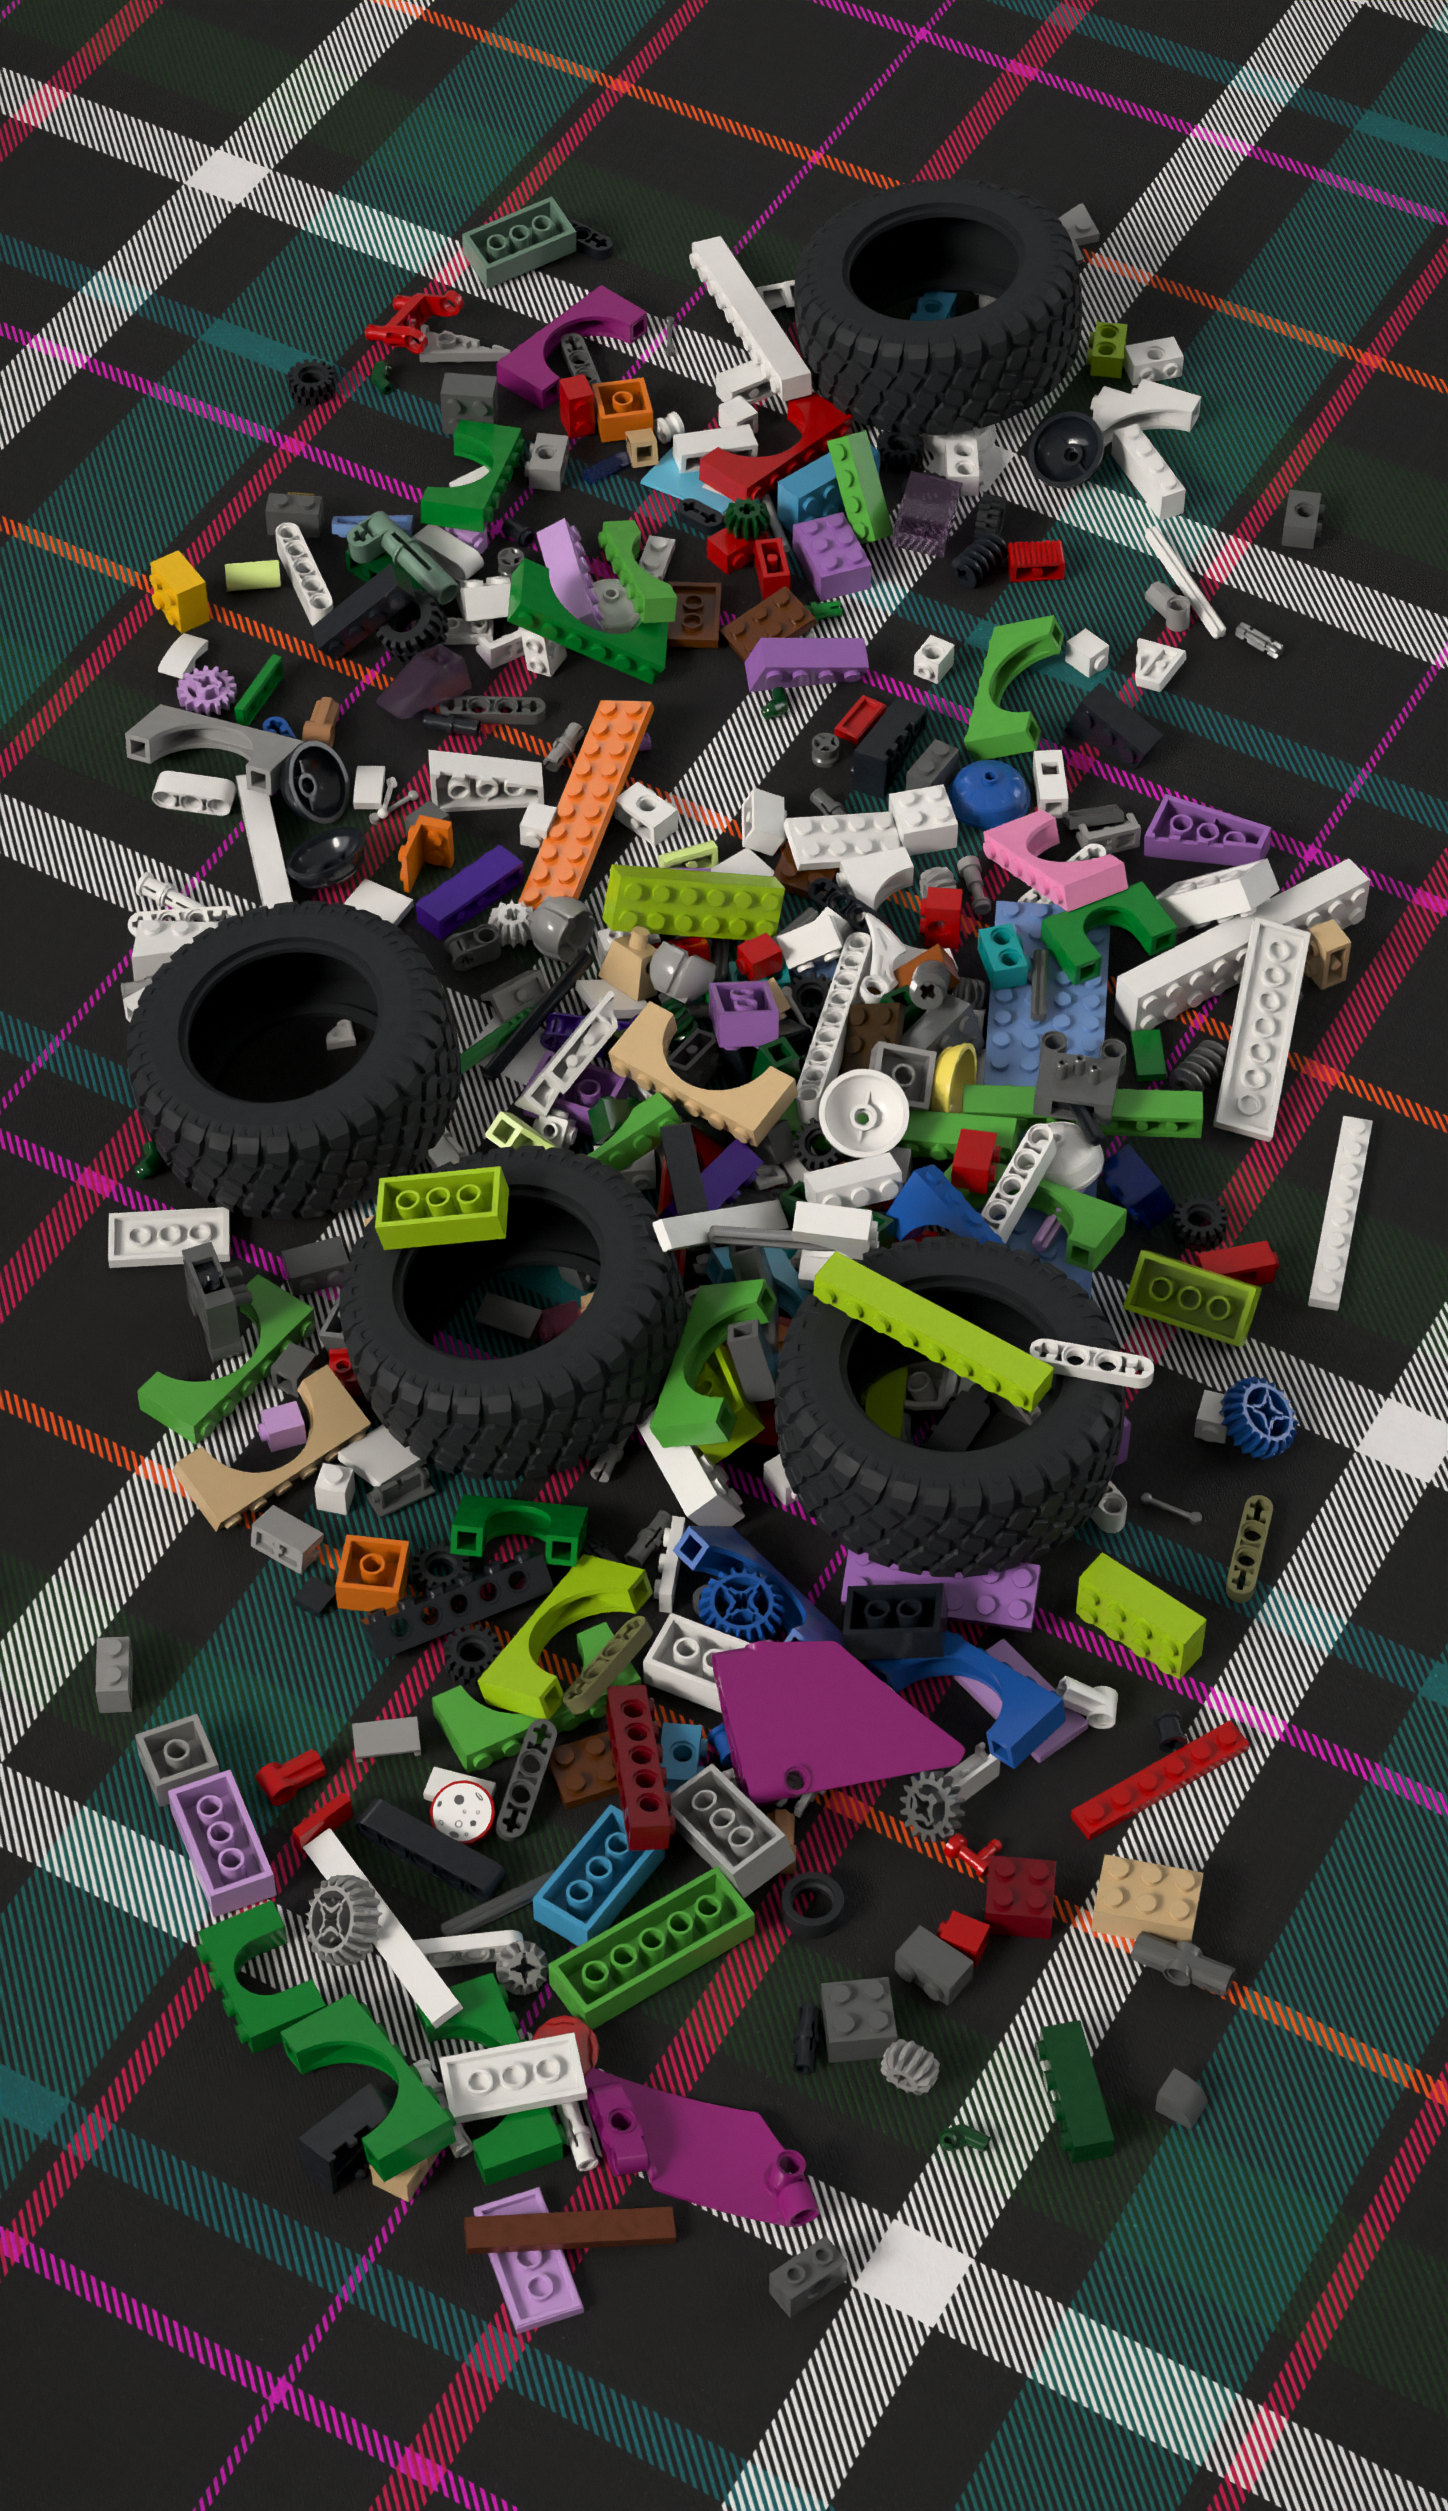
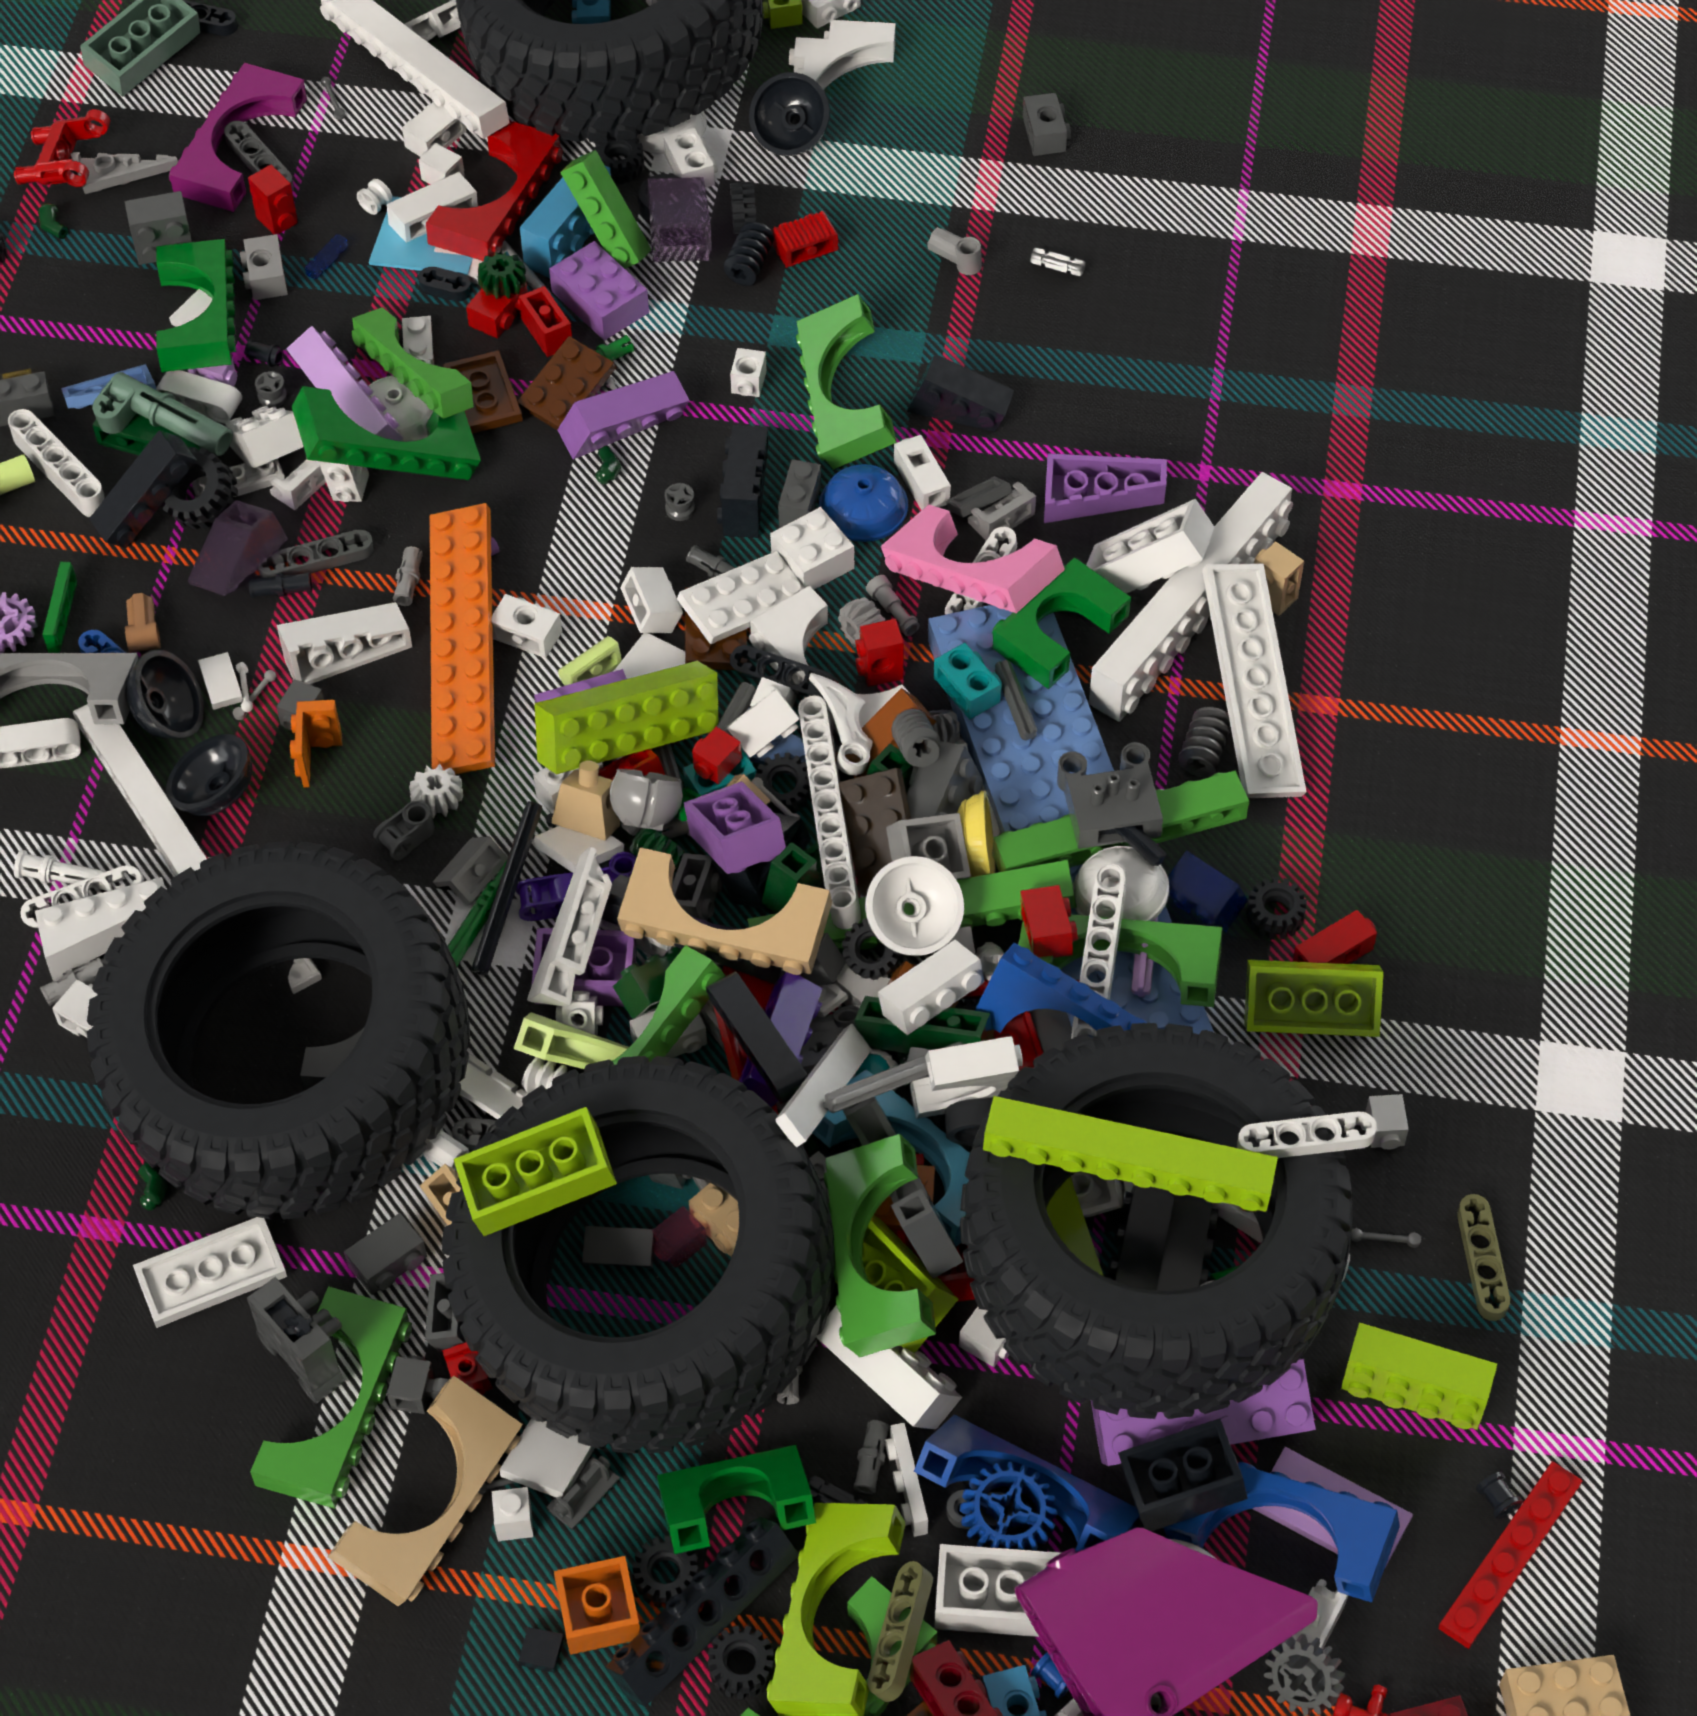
camera: 20 degrees left, 5 degrees up
(282, 1426) = (424, 1458): lavender brick -> none
(286, 1539) = (482, 1592): light grey hinge -> none
(380, 901) = (280, 816): white tile -> none
(469, 892) = (375, 768): dark purple brick -> none
(536, 824) = (417, 672): white brick -> none
(561, 927) = (492, 781): light grey piece -> none
(621, 408) = (322, 190): orange brick -> none
(642, 447) = (357, 226): tan brick -> none
(860, 719) = (699, 458): red tile -> none
(1087, 653) = (898, 323): white brick -> none
(1096, 1703) = (1411, 1491): white piece -> none
(1148, 472) = (875, 115): white brick -> none
(1148, 1055) = (1140, 729): green tile -> none
(1156, 664) = (969, 315): white wing -> none
(1185, 582) = (959, 220): white axle -> none
(1252, 1411) = (1436, 1110): blue gear -> none
(1340, 1213) = (1407, 854): white plate -> none

